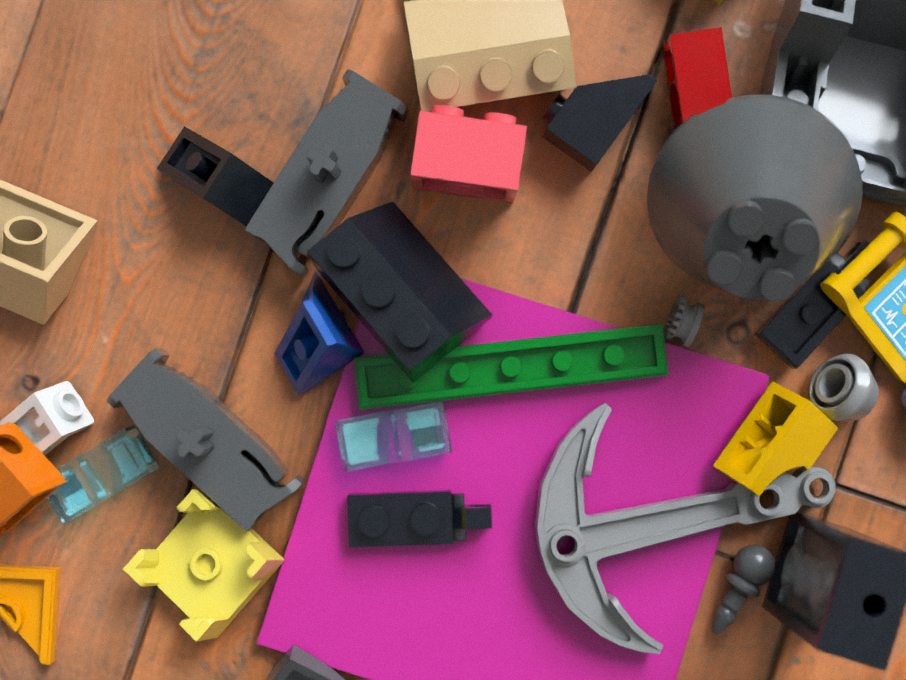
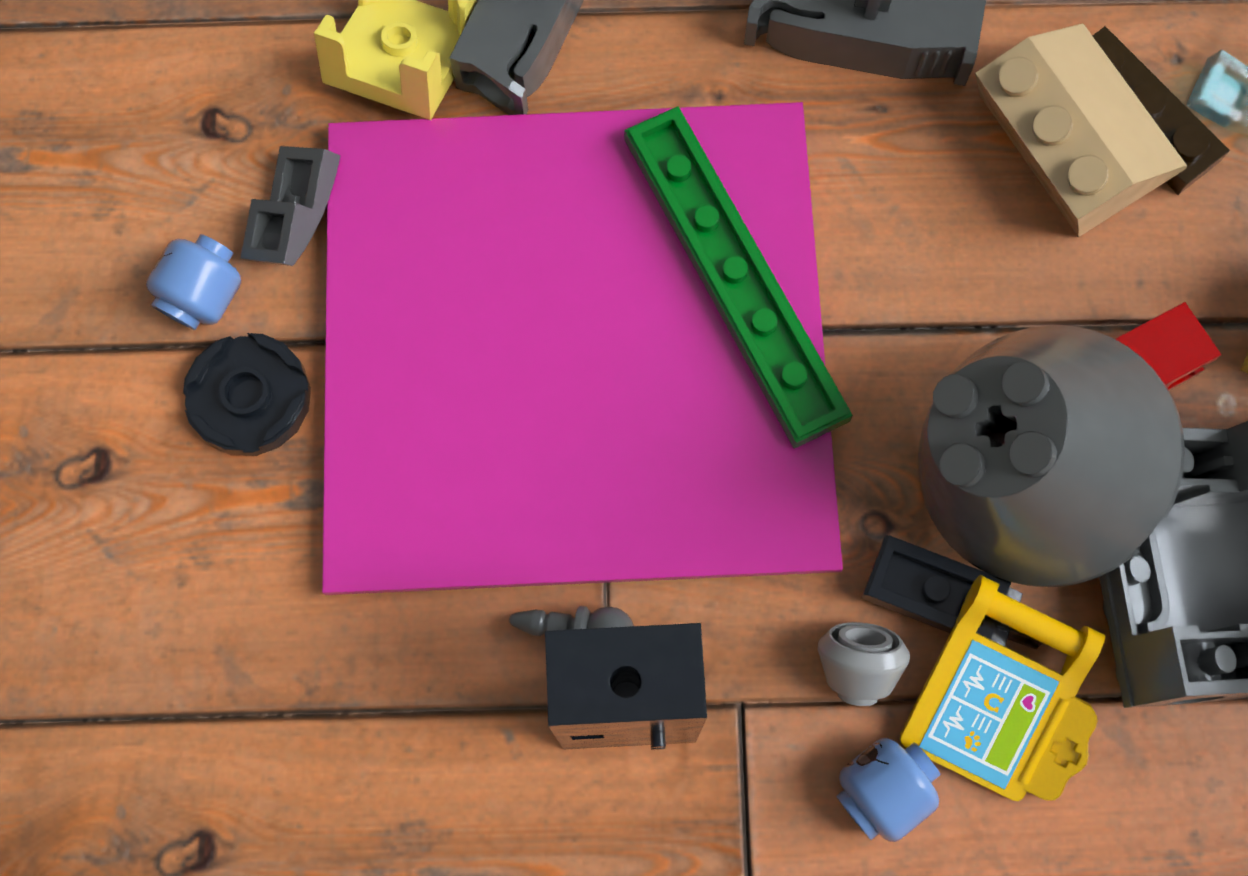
camera: 75 degrees right, 15 degrees down
(316, 340) = (688, 65): blue slope -> none
(393, 436) = (608, 176): clear light blue slope -> none
(399, 287) = (774, 117): black slope -> none
(412, 518) = (524, 227): black hinge -> none
(468, 154) = (948, 133): coral slope -> none
(594, 117) = (1055, 270): black slope -> none
(616, 531) = (584, 435): light grey piece -> none
(685, 321) = (864, 447): light grey bush -> none
(774, 438) = (776, 590): yellow arch -> none

